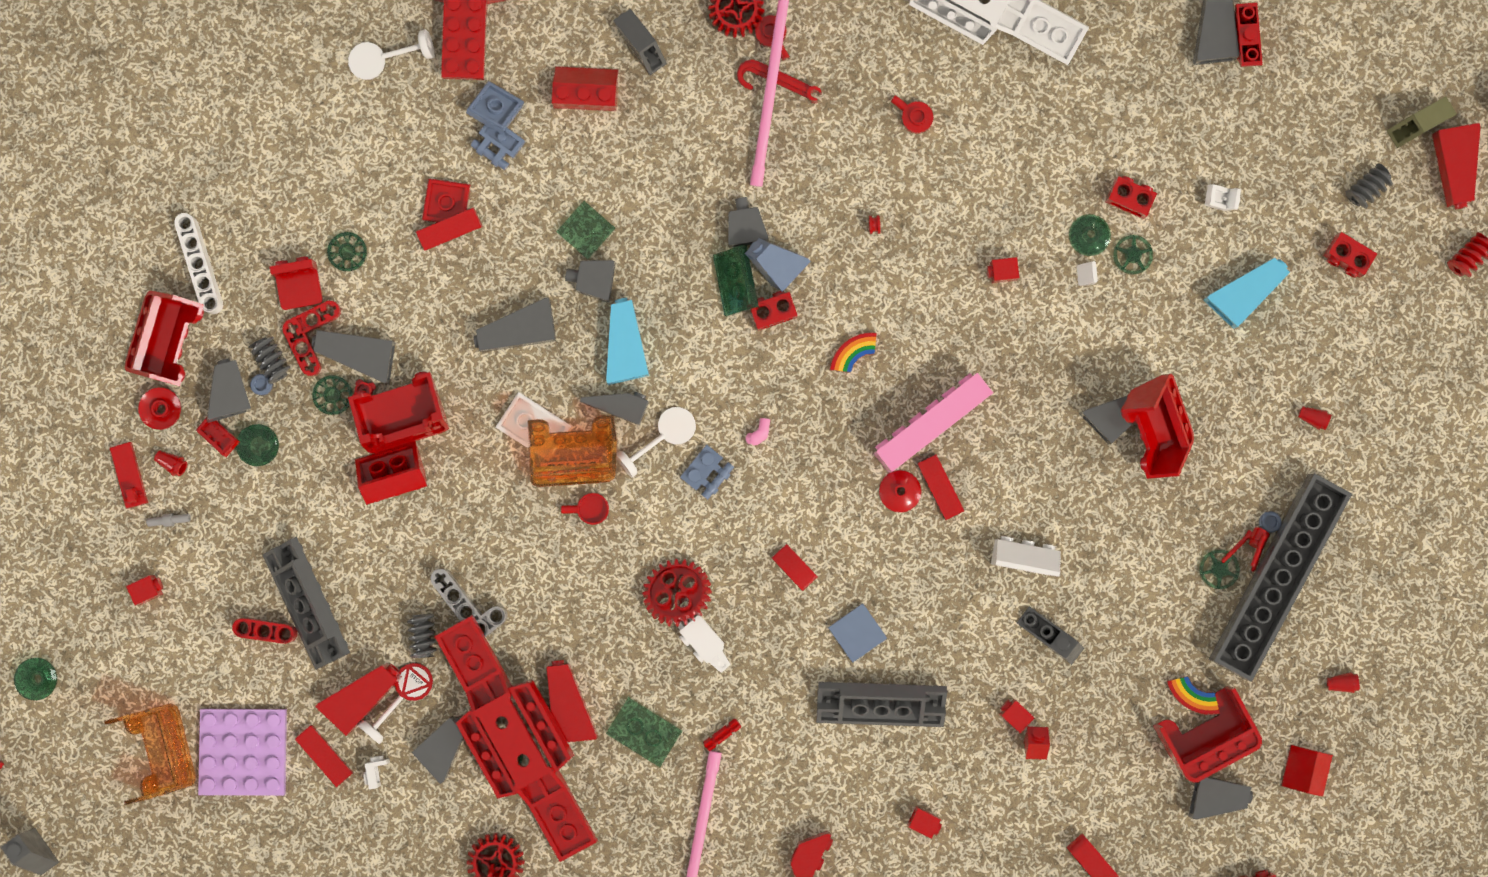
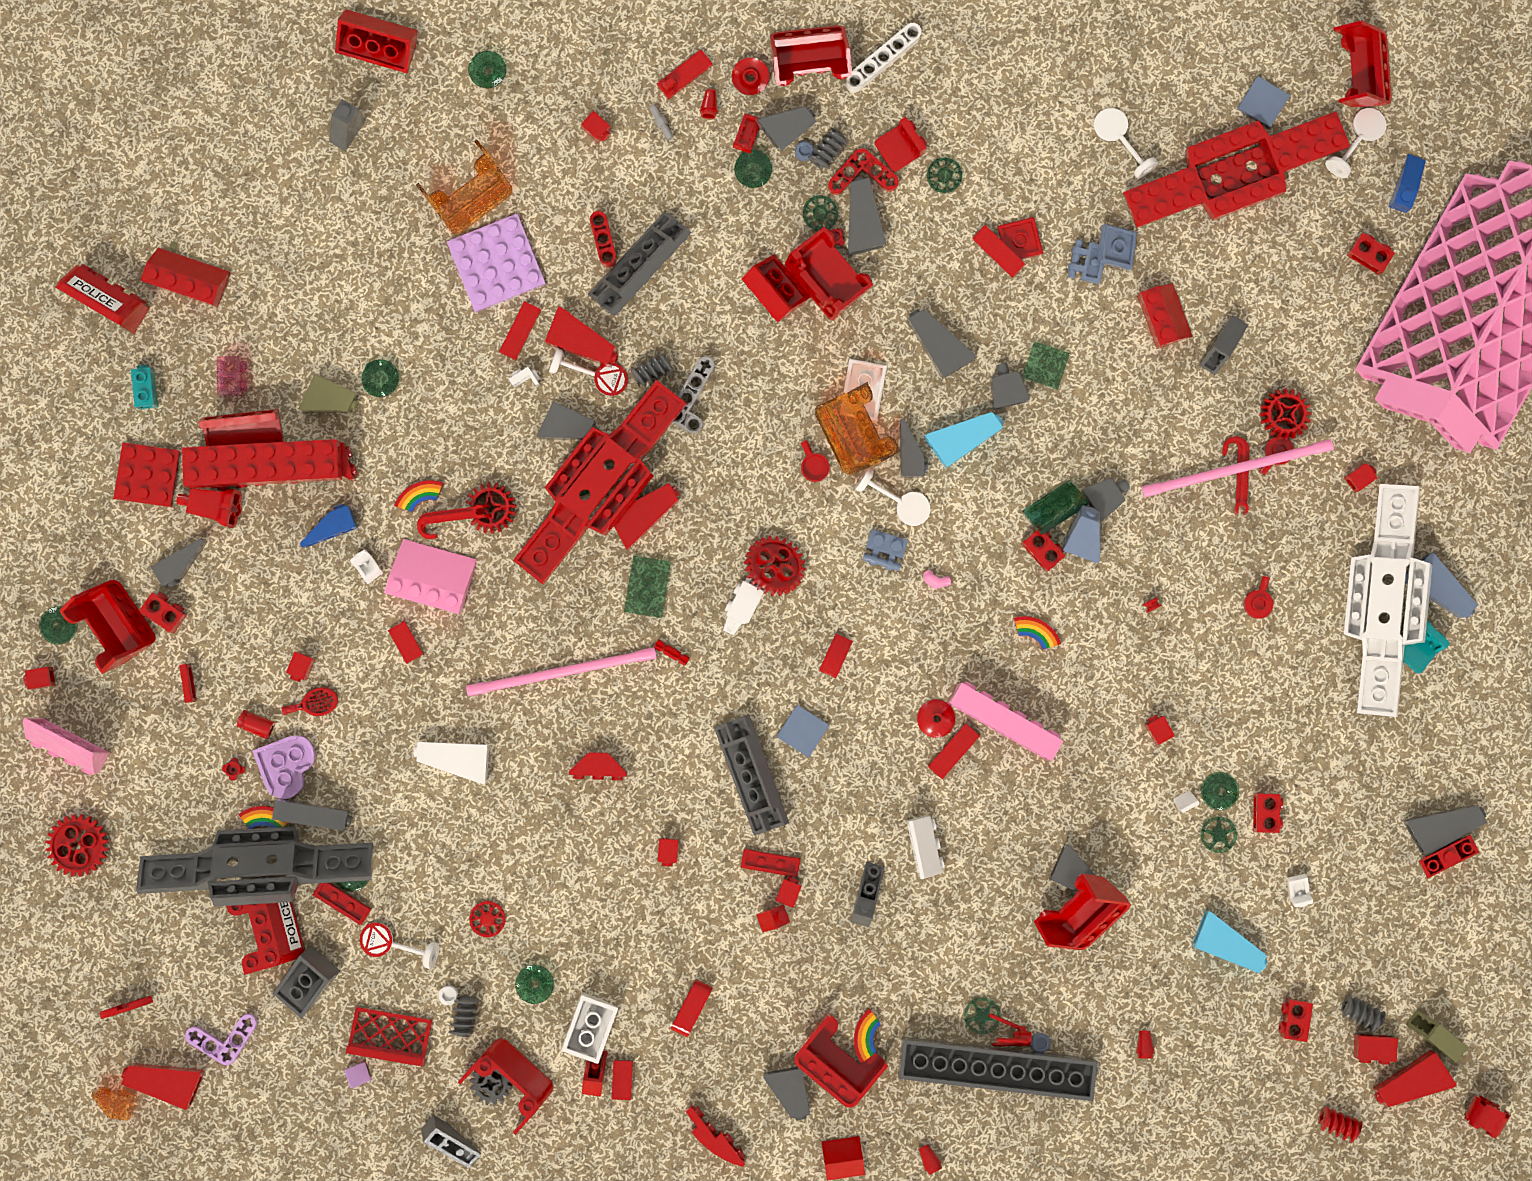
camera: 70 degrees right, 0 degrees up
(978, 721) = (770, 863): none -> red tile
(1409, 188) = (1376, 1048): none -> red brick

